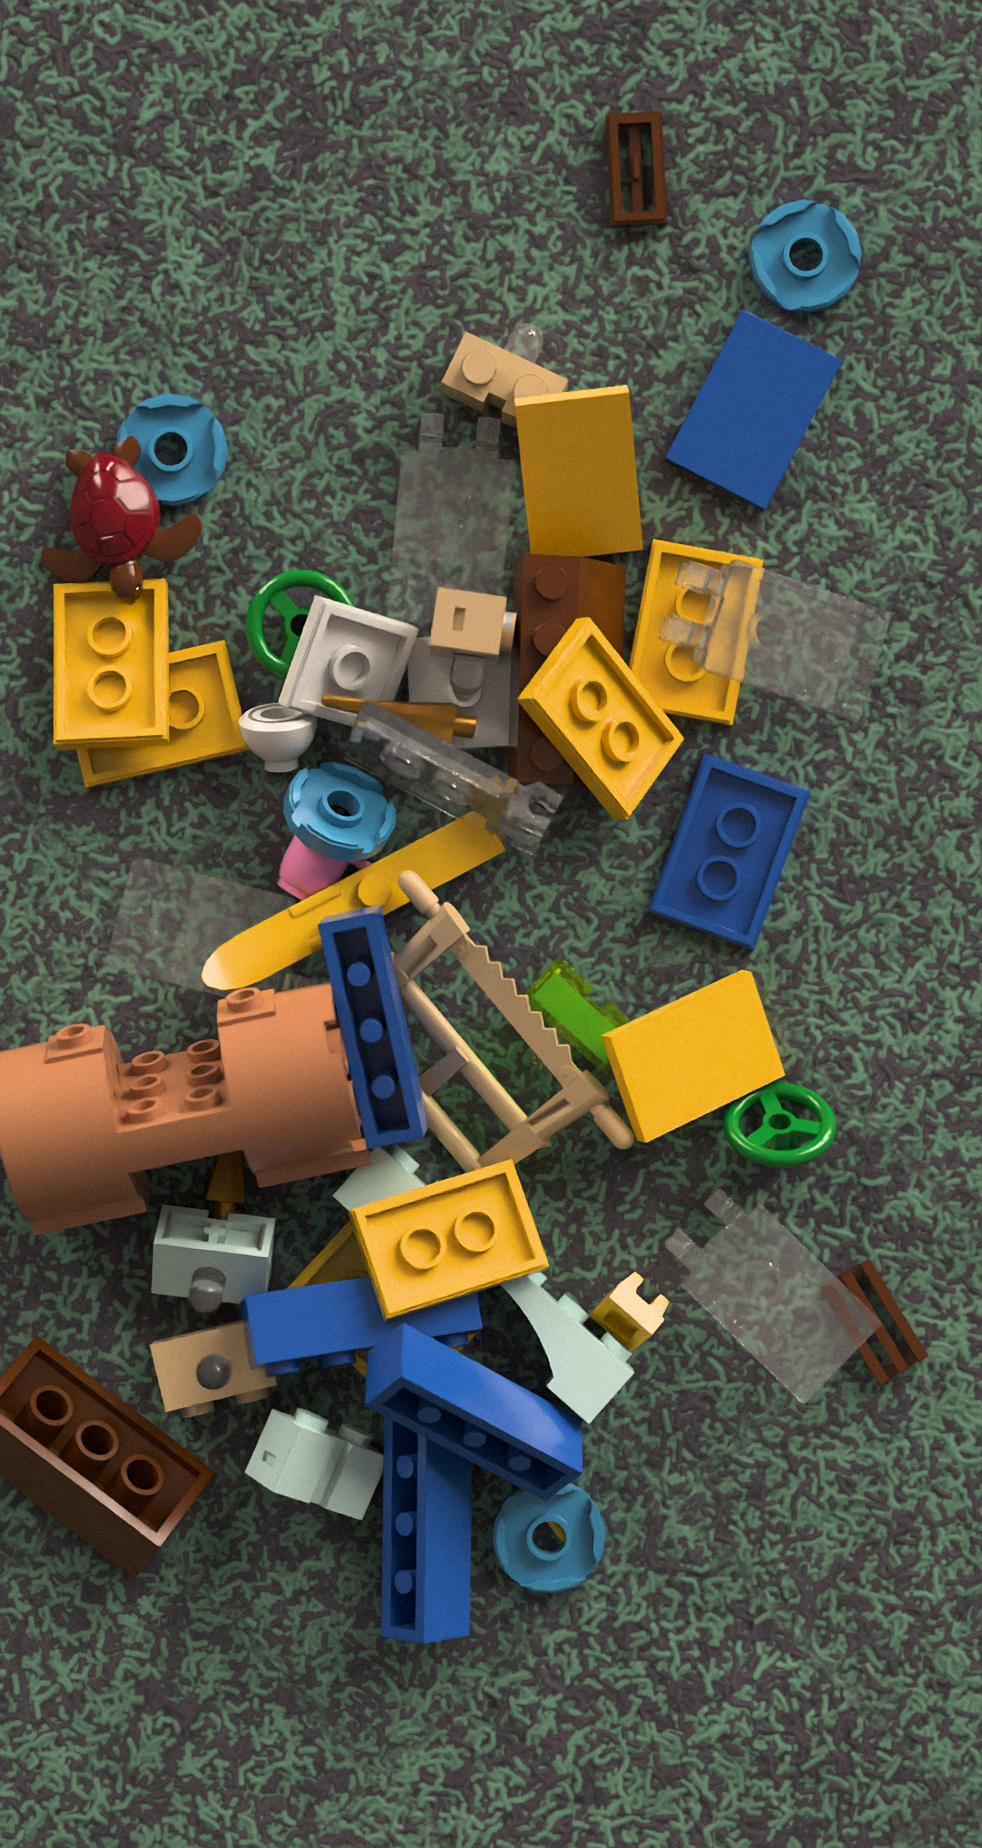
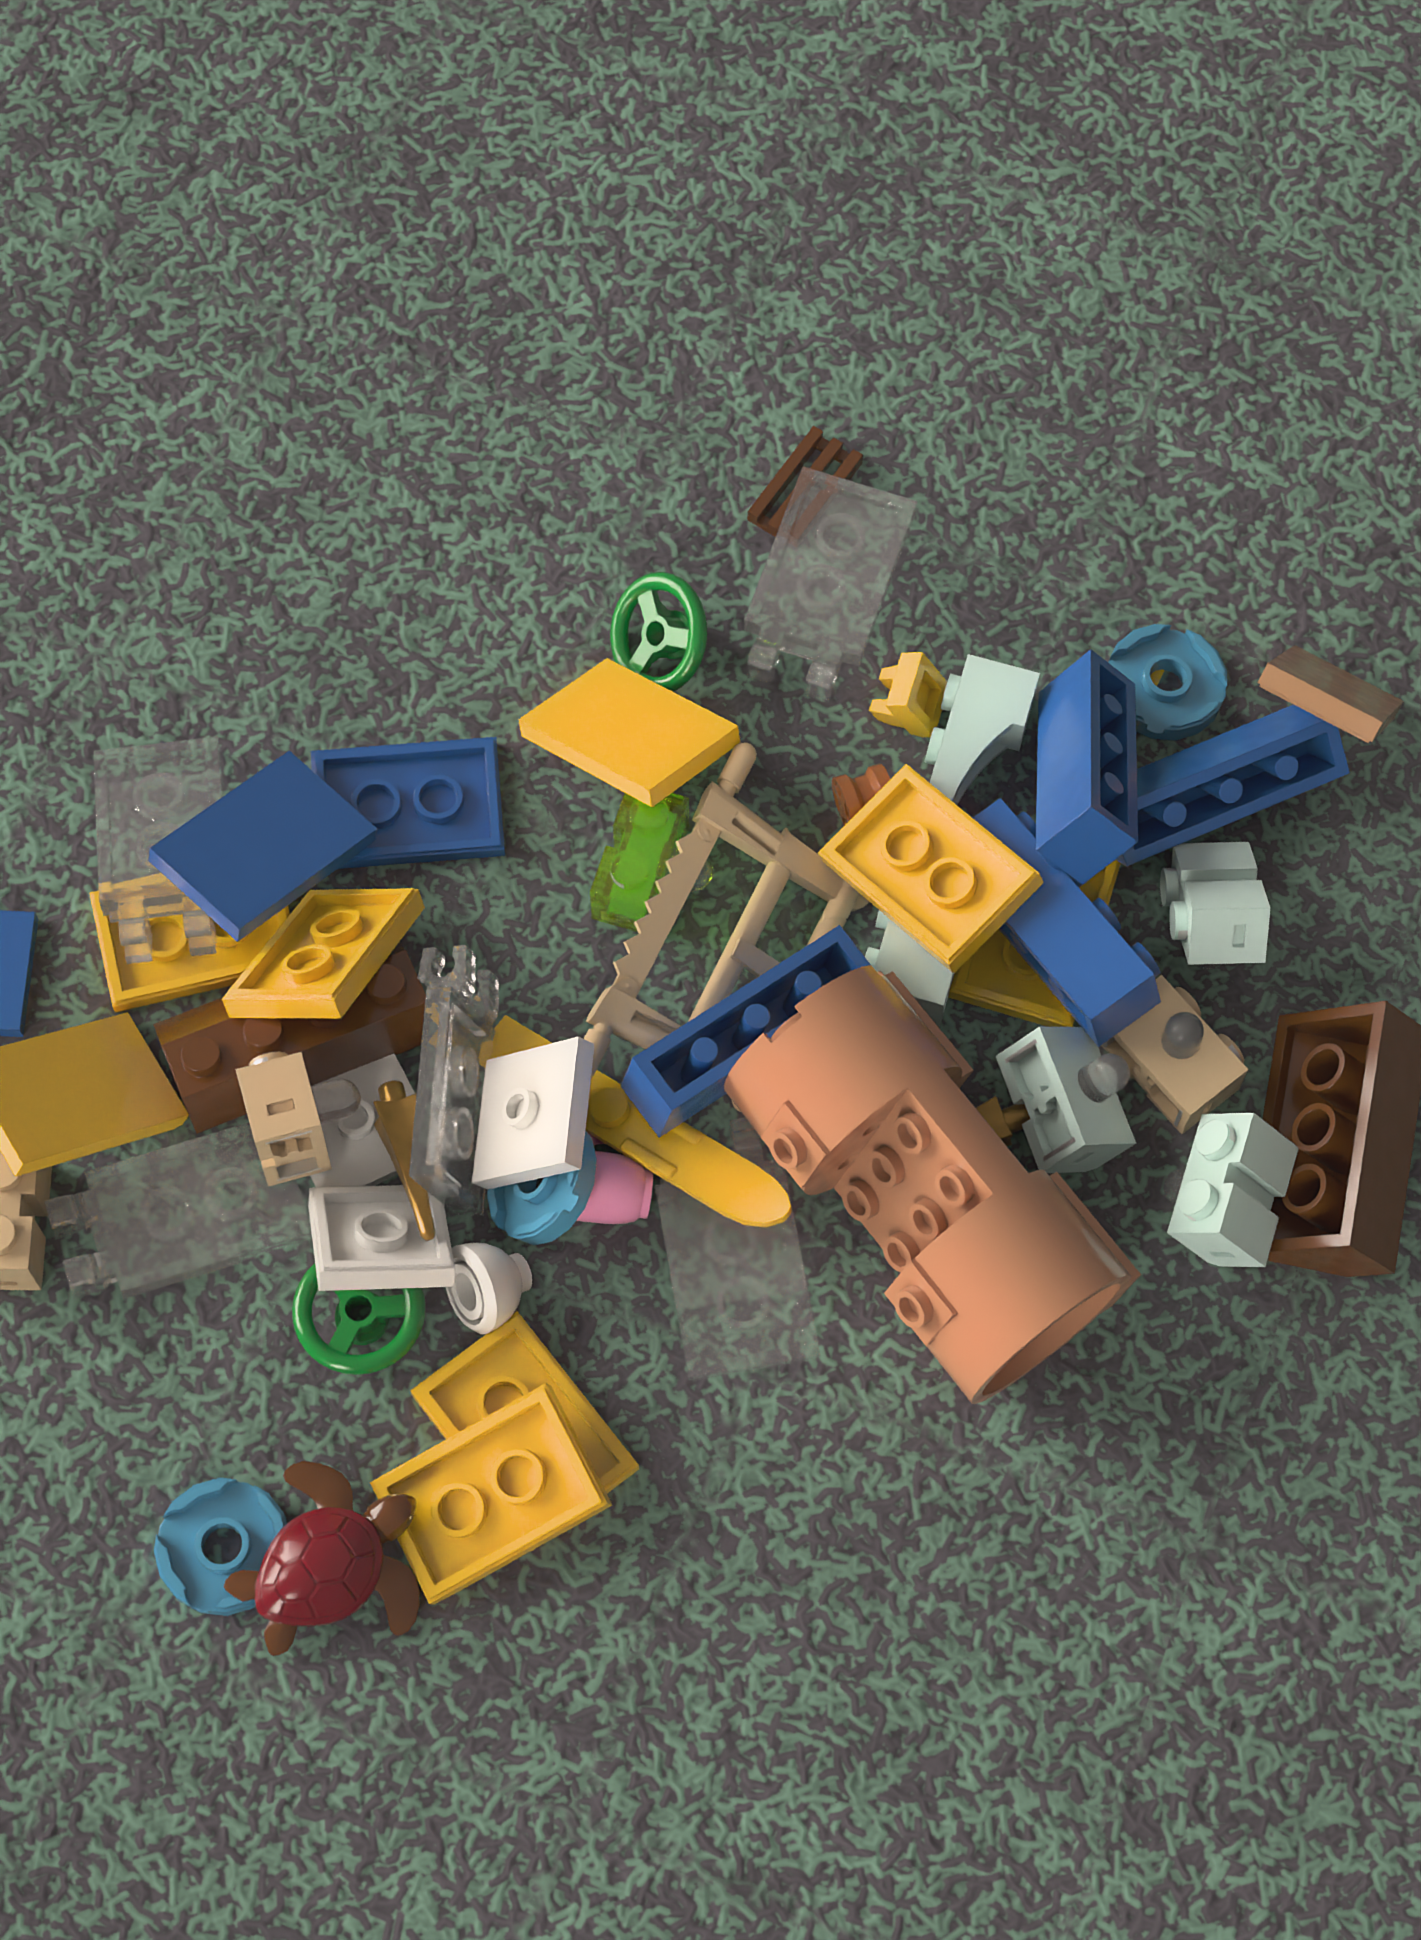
camera: 120 degrees left, 20 degrees down
(79, 1346) = (1229, 1189): none -> light aqua piece
(387, 825) = (533, 1113): none -> white plate
(450, 1655) = (1330, 693): none -> medium nougat tile
(556, 1225) = (854, 793): none -> dark orange wheel
(726, 711) = (262, 845): none -> blue tile

